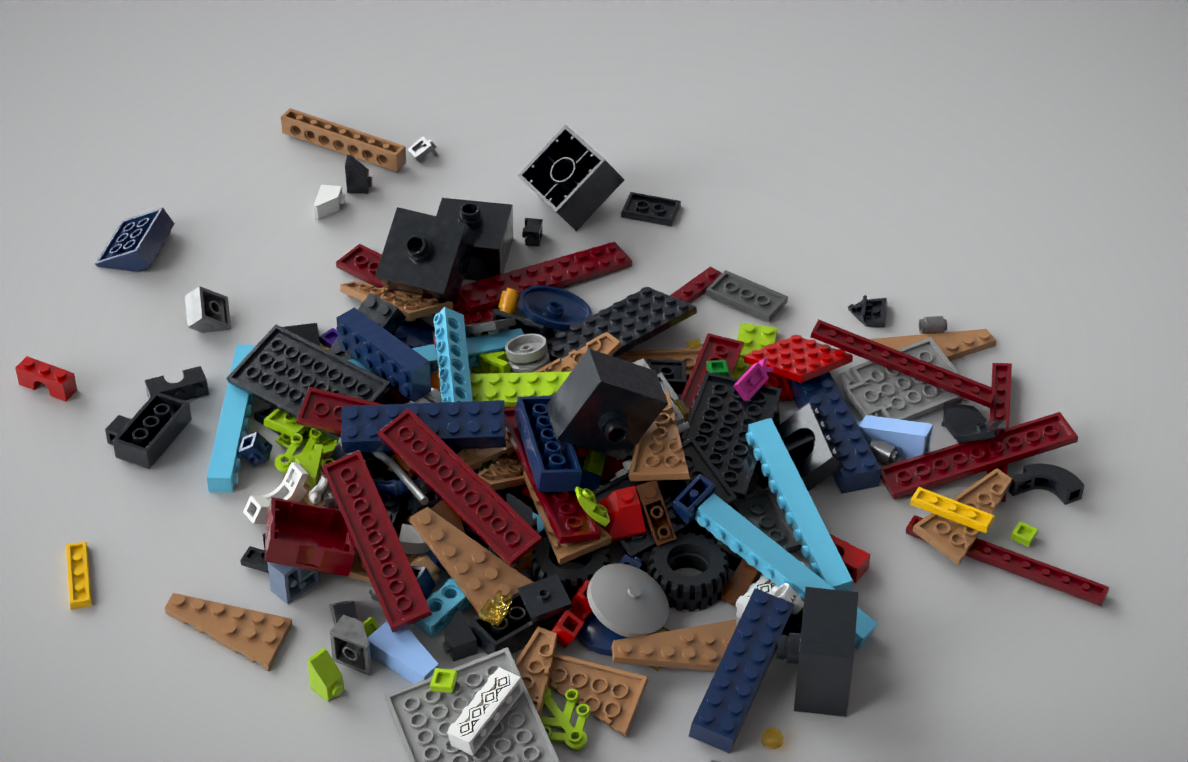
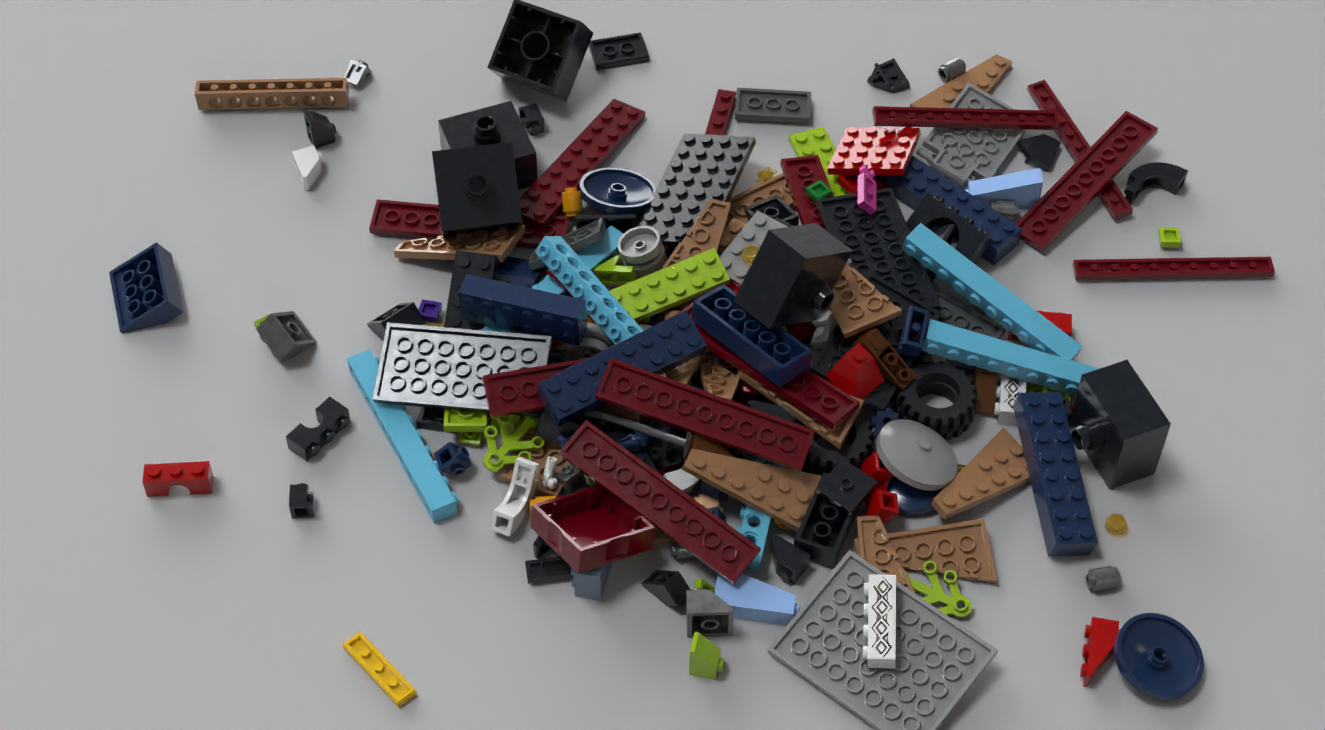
camera: 30 degrees left, 10 degrees up
(152, 430) = (334, 485): black brick -> none
(236, 628) = (575, 649): medium nougat wing -> none
(312, 465) = (529, 450): lime slope -> none
(443, 680) = (818, 609): lime plate -> none
(496, 609) = (813, 518): clear yellow plate -> none
(588, 502) = (838, 380): lime slope -> none
(787, 593) = (1041, 384): white piece -> none
(952, 510) = (1110, 242): yellow tile -> none
(954, 538) = (1118, 245): medium nougat wing -> none
(981, 431) = (1075, 156): black plate -> none

